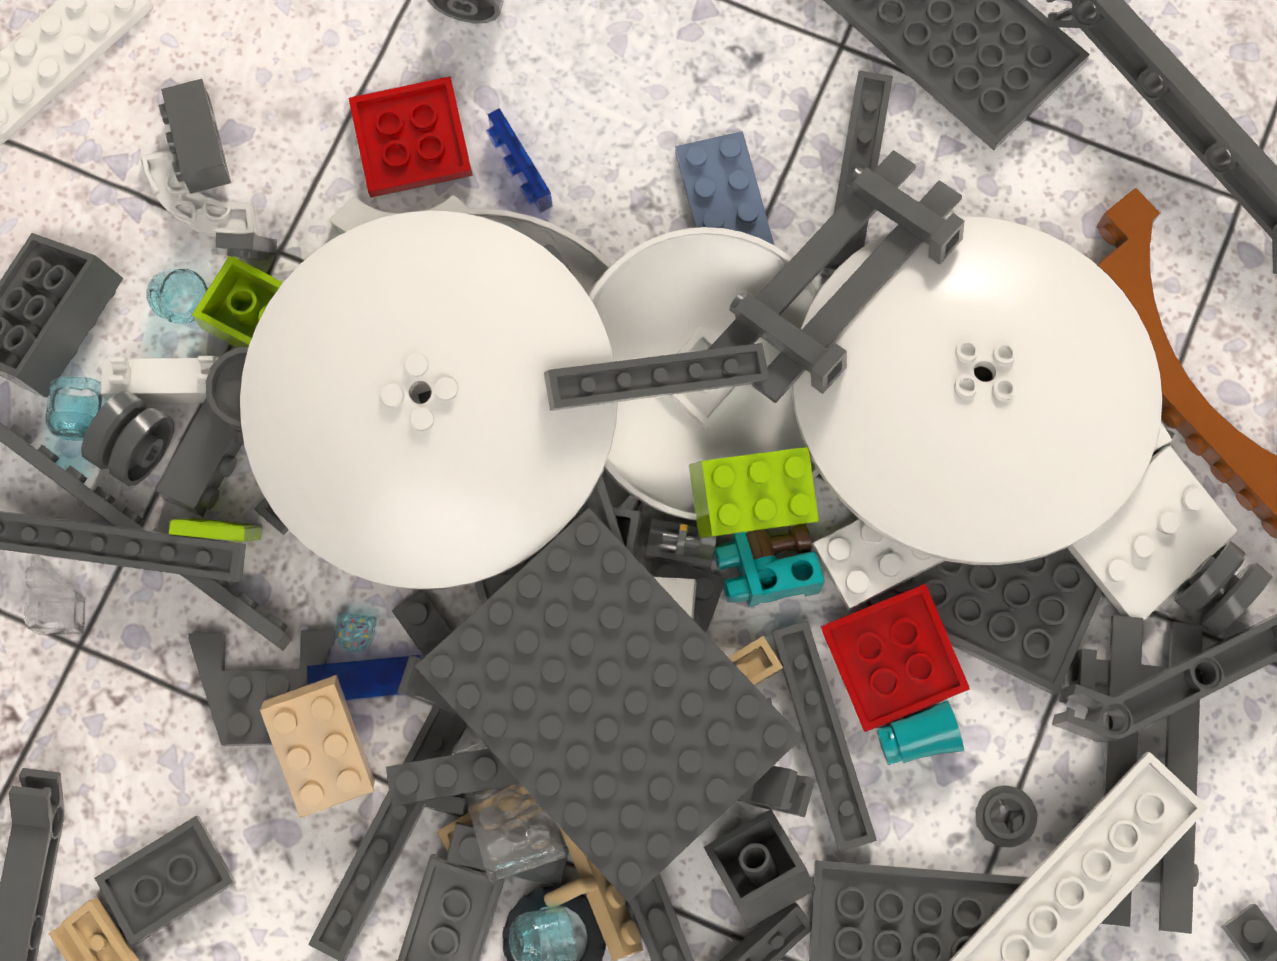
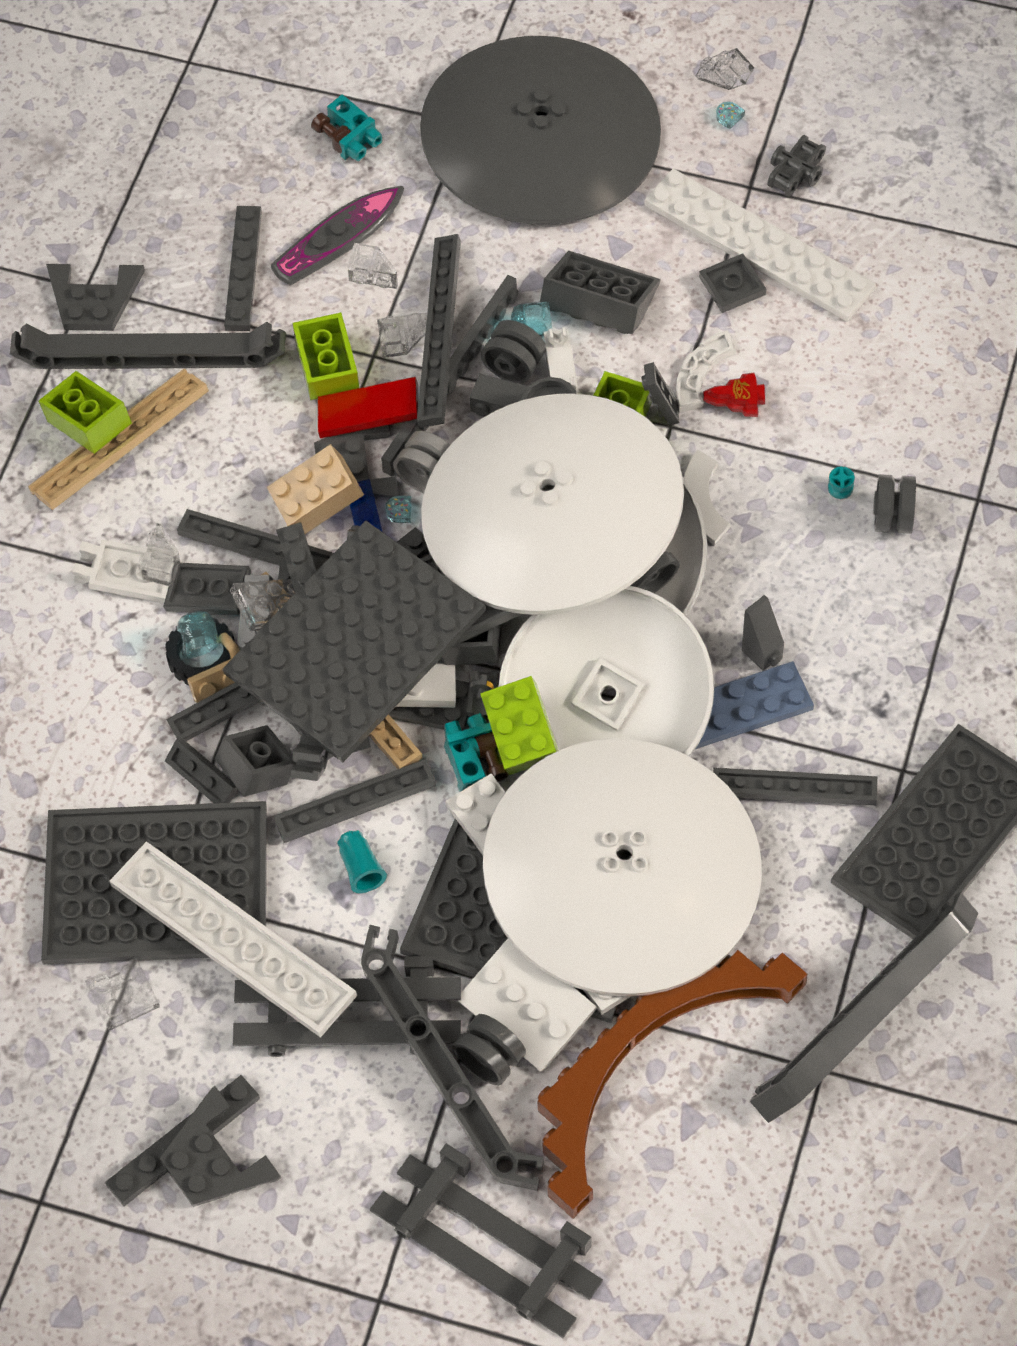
camera: 85 degrees right, 15 degrees down
(62, 138) = (732, 283): none -> dark grey plate
(75, 711) = (325, 355): none -> lime brick
(163, 288) = (623, 358): clear light blue helmet -> none
(165, 880) = (222, 426): dark grey plate -> none
(180, 658) = (367, 407): none -> red tile
(194, 136) = (744, 355): dark grey brick -> none
(215, 529) = (455, 408): lime tile -> none
(251, 153) = (738, 395): none -> red rock
(295, 582) = (419, 458): none -> light grey wheel
(406, 43) = (846, 479): none -> teal wheel
(410, 137) = (770, 490): red plate -> none
(518, 161) = (762, 560): clear blue plate -> none
(648, 172) = (761, 635): none -> dark grey slope
(655, 376) = (582, 630): dark grey plate -> none
(807, 347) = (730, 806): dark grey fence -> none
(895, 657) = (414, 836): red plate -> none
(1013, 800) = (313, 914): dark grey gear -> none

